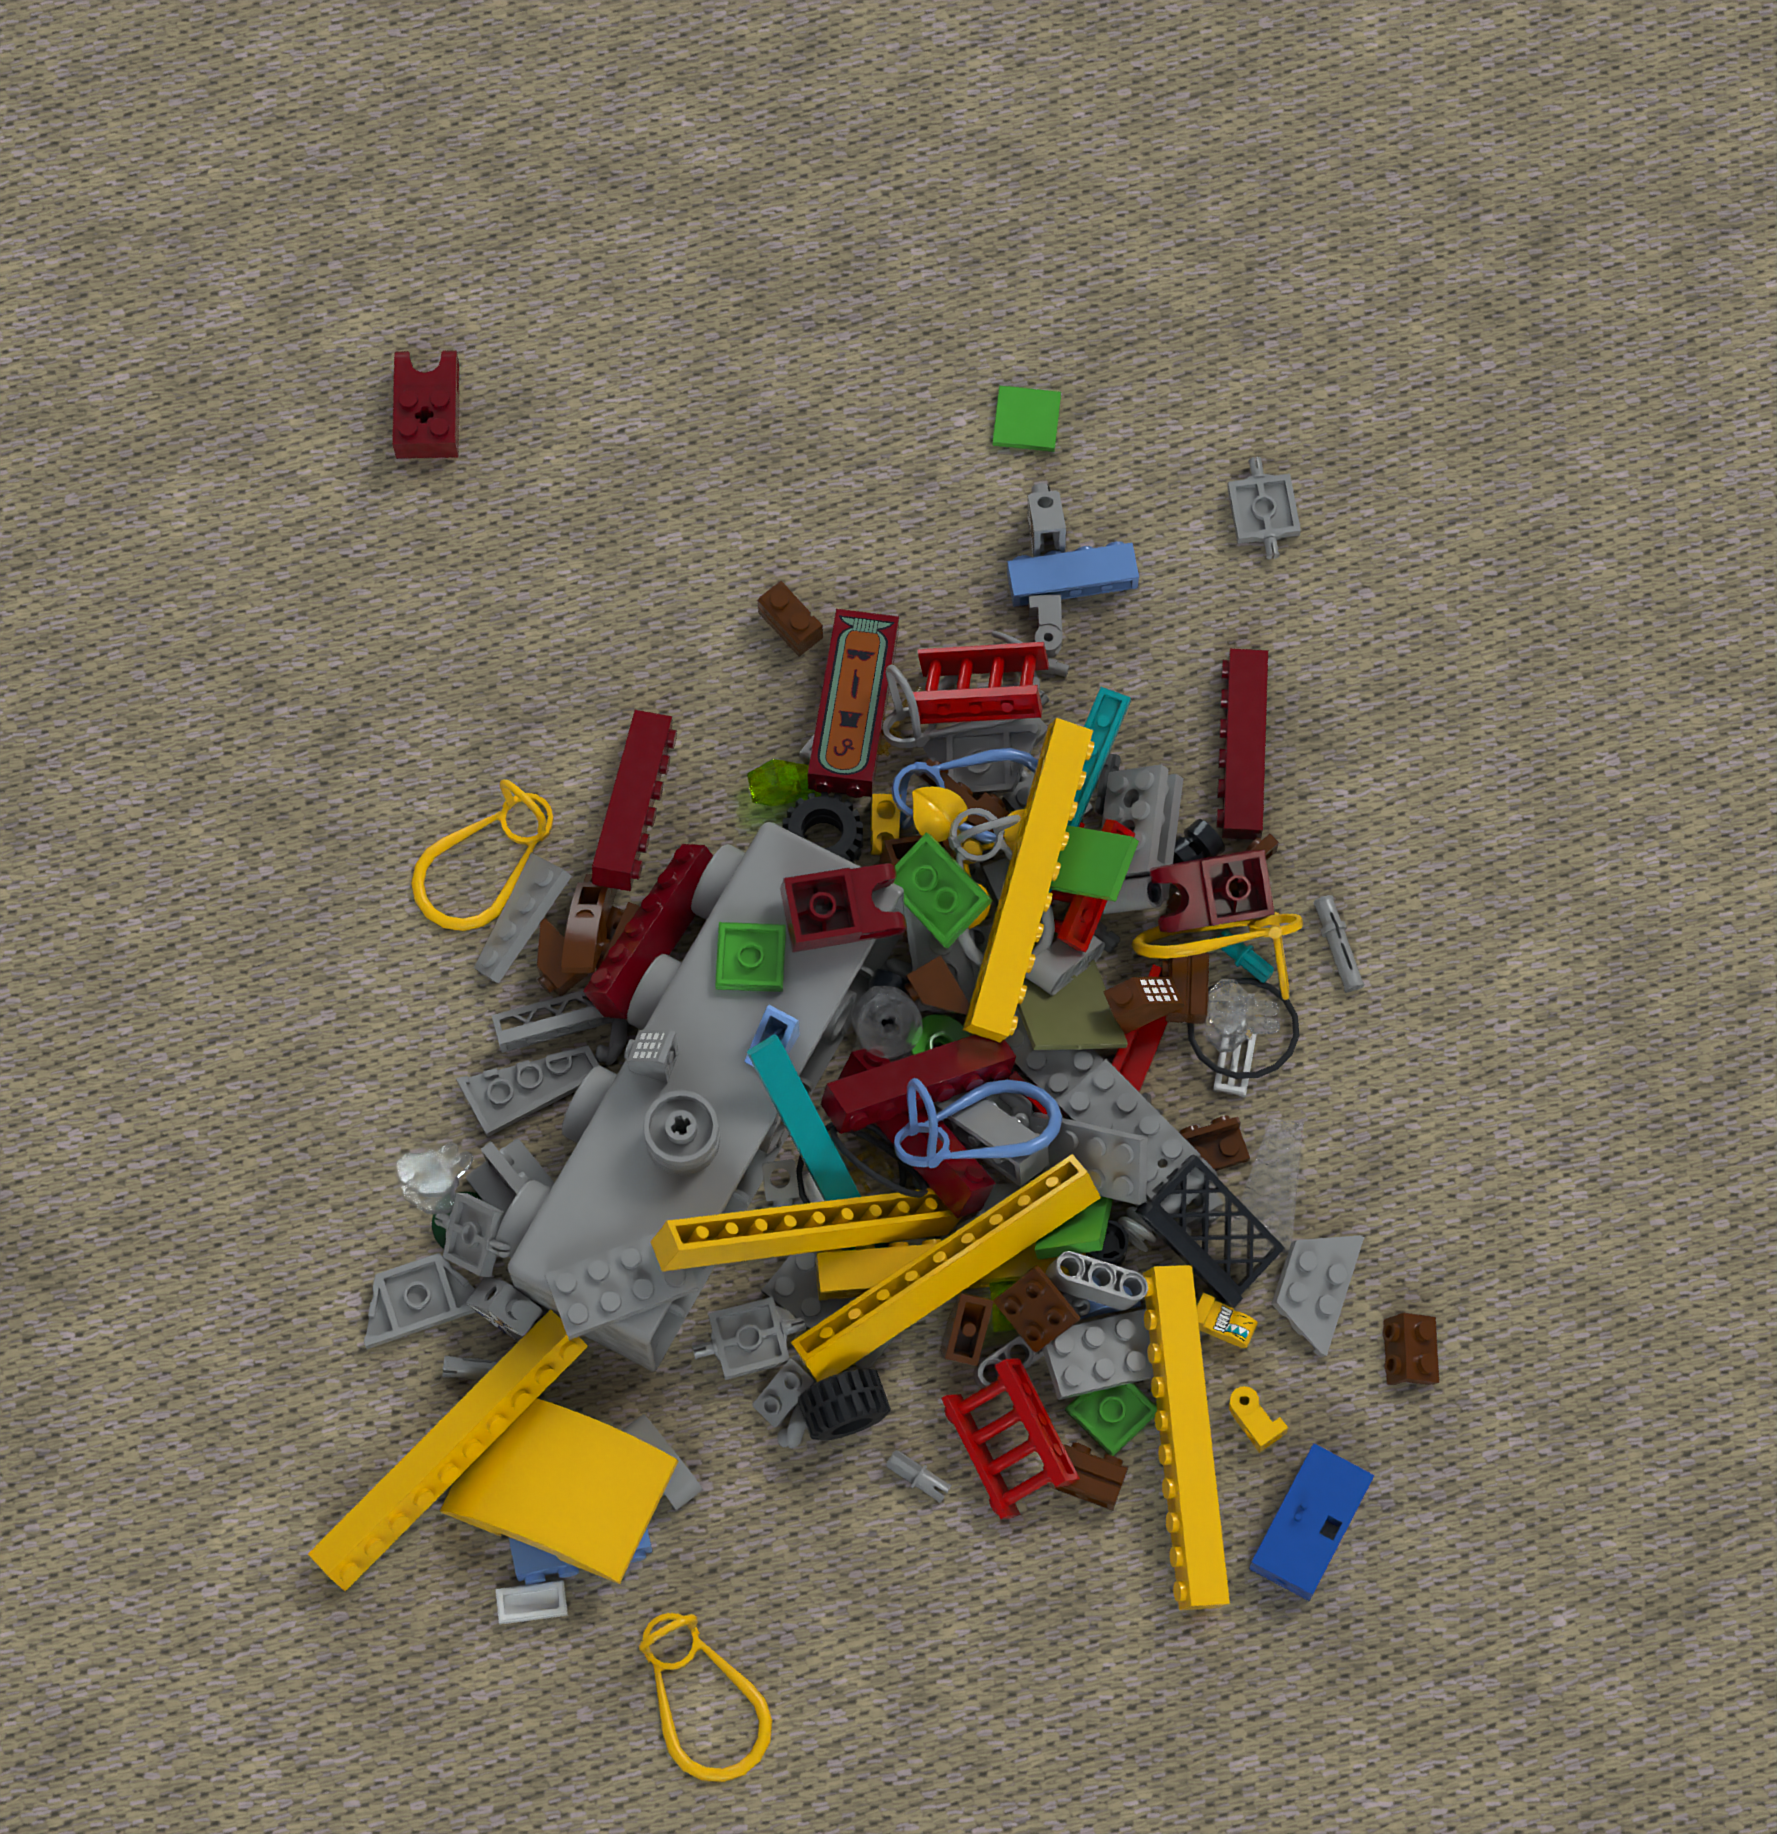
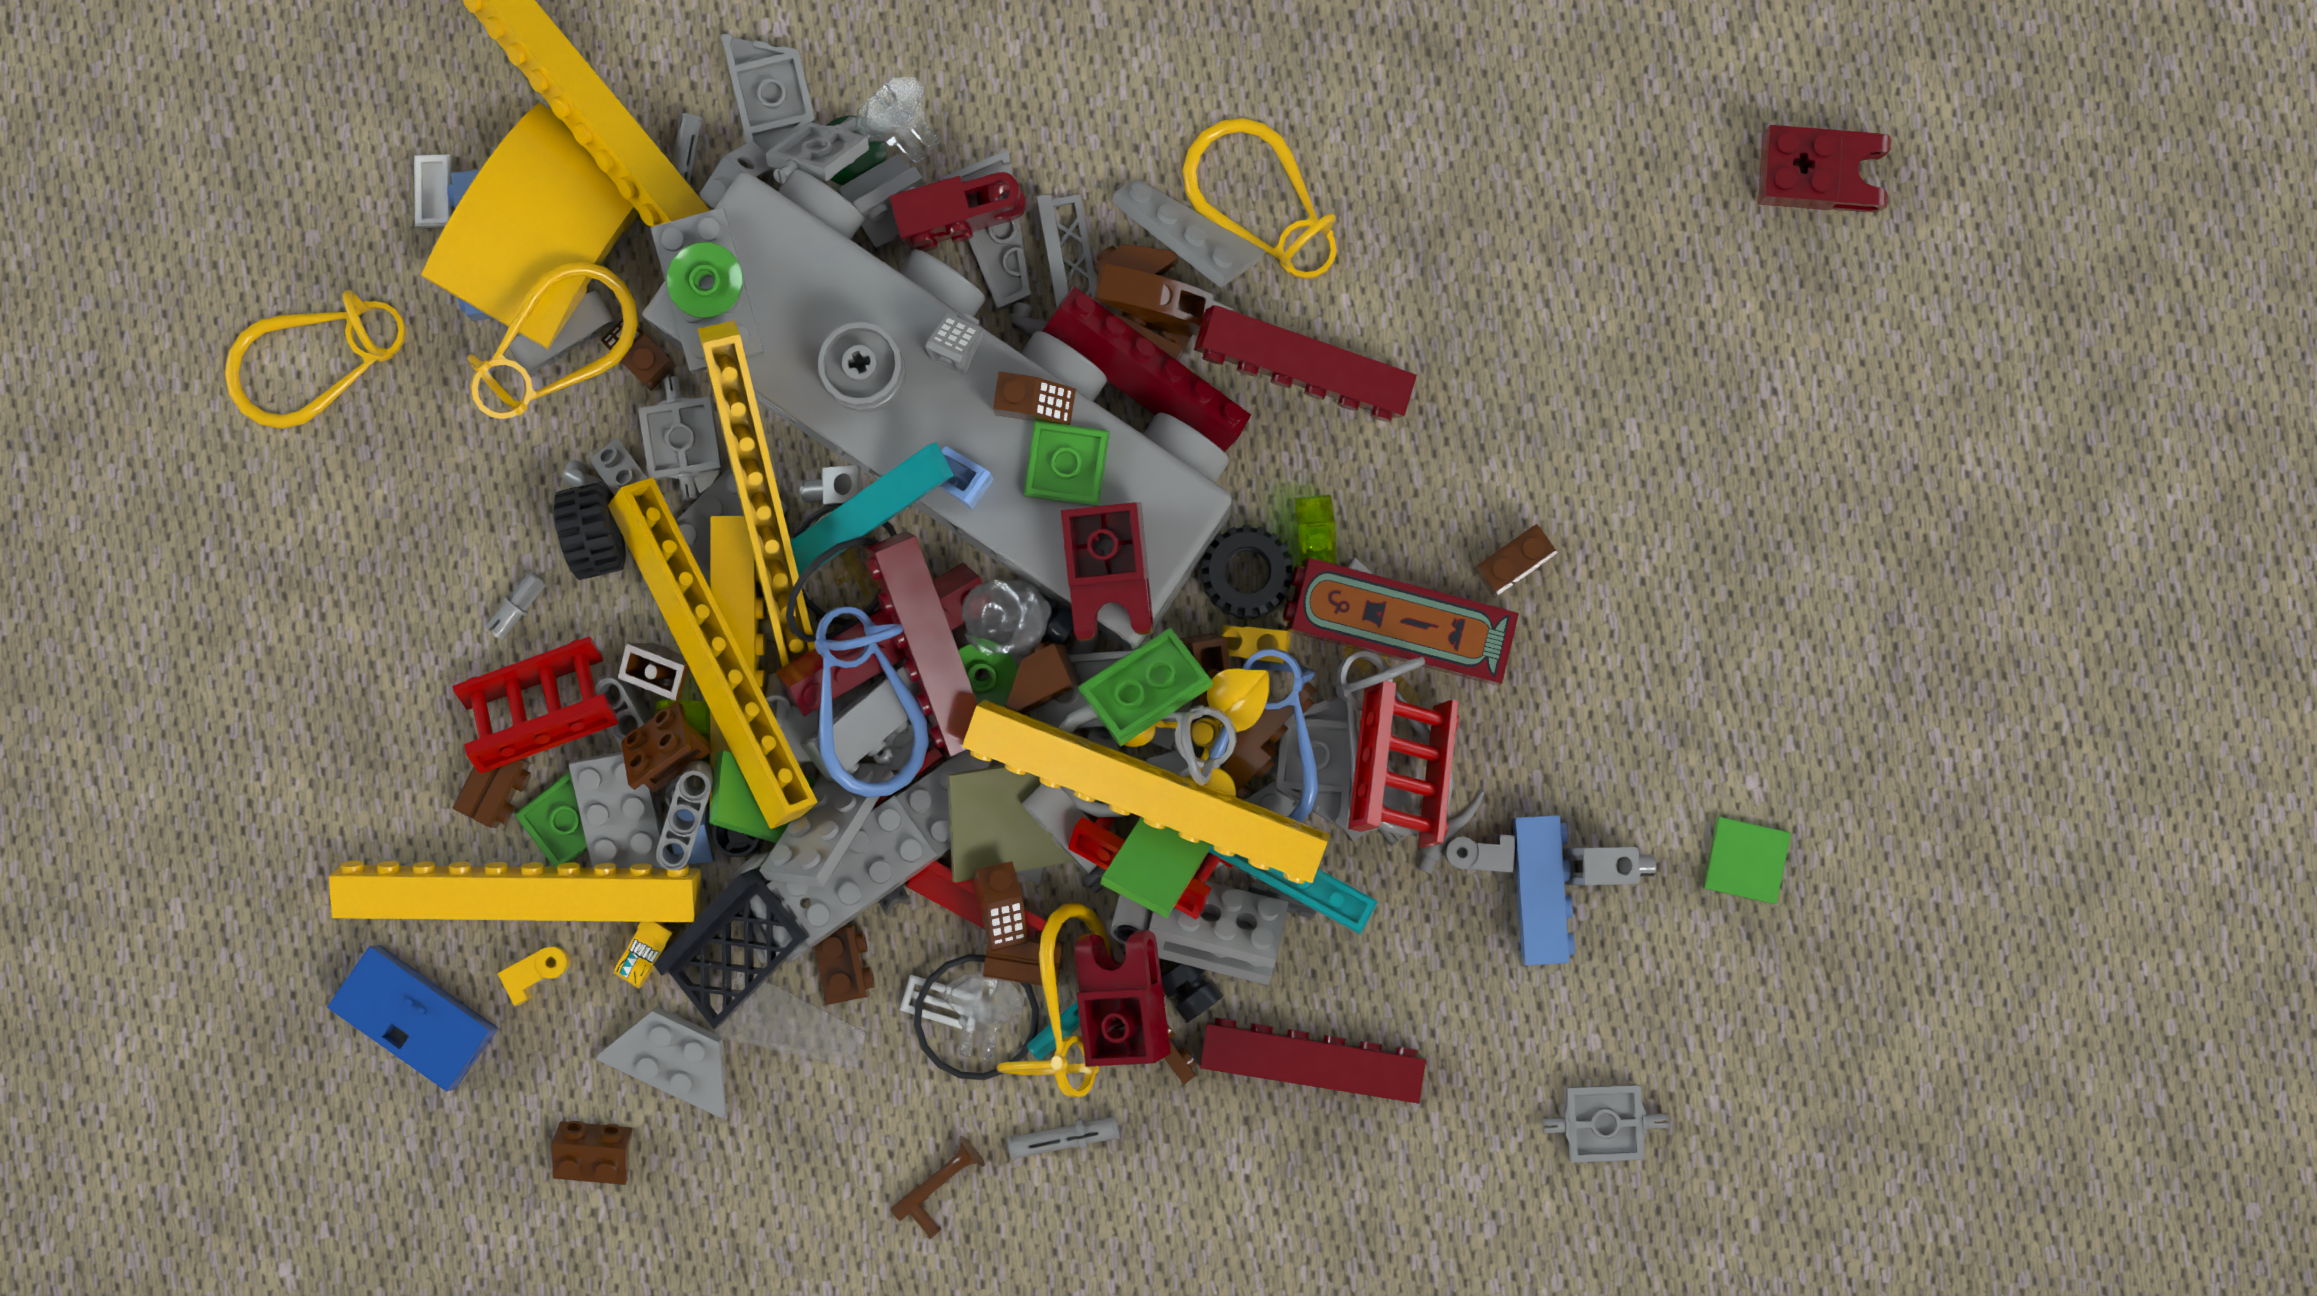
camera: 100 degrees right, 15 degrees up
(520, 1107) = (955, 209): none -> dark red brick
(611, 1256) = (691, 267): none -> bright green dish
(634, 1461) = (528, 305): none -> yellow animal
(670, 1390) = (643, 358): none -> reddish brown slope
(697, 989) = (1033, 399): none -> reddish brown slope
(1414, 1067) = (912, 1201): none -> reddish brown piece

